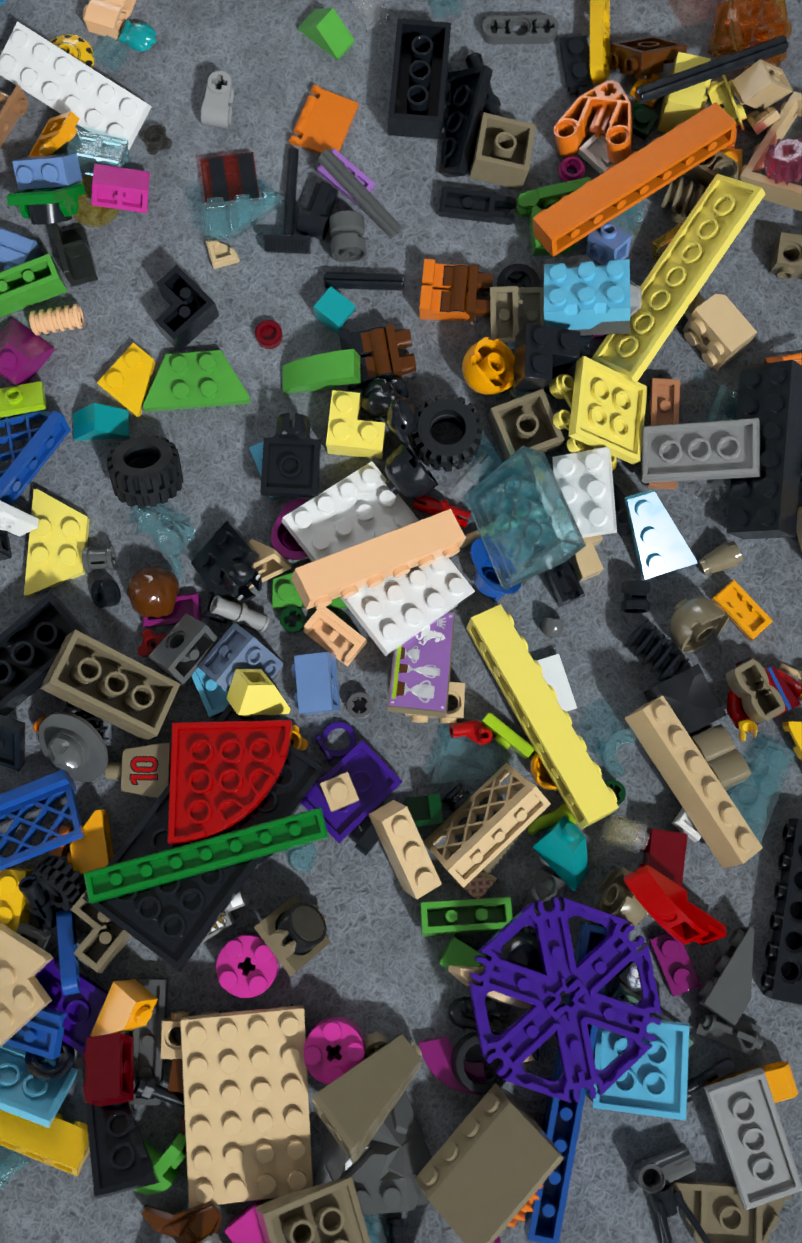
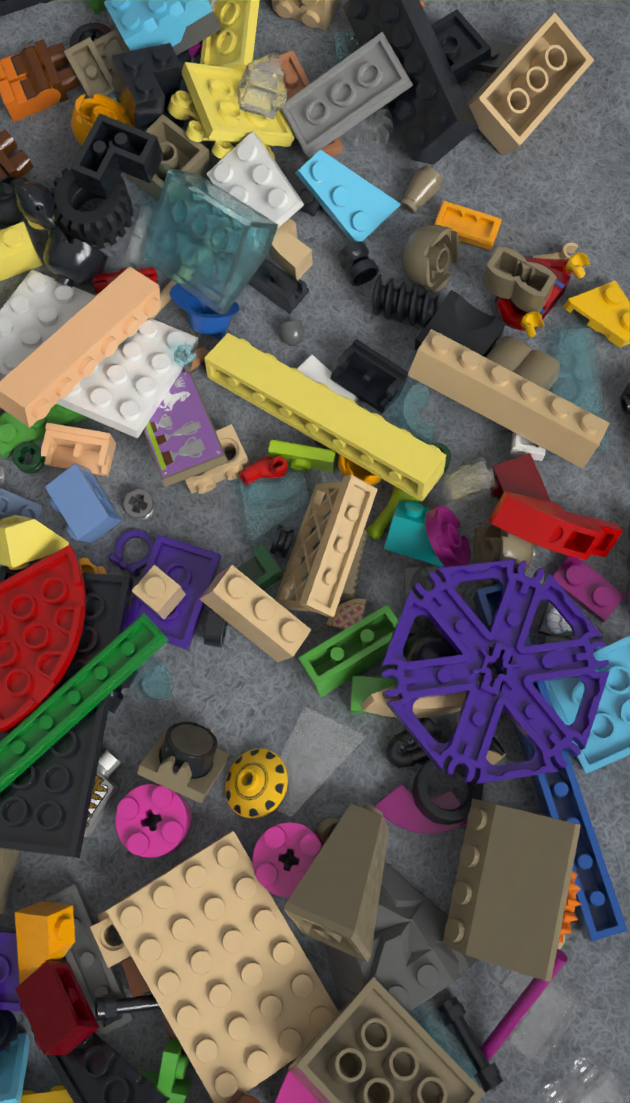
camera: 20 degrees left, 5 degrees down
(347, 986) = (266, 788): none -> yellow dish
(388, 979) = (313, 754): none -> clear wing
(459, 607) = (190, 360): none -> clear light blue arm
(488, 407) = (115, 149): none -> black brick
(584, 869) = (445, 538): none -> magenta tile
(594, 699) = (369, 376): none -> black hinge
(636, 407) = (262, 87): none -> clear slope

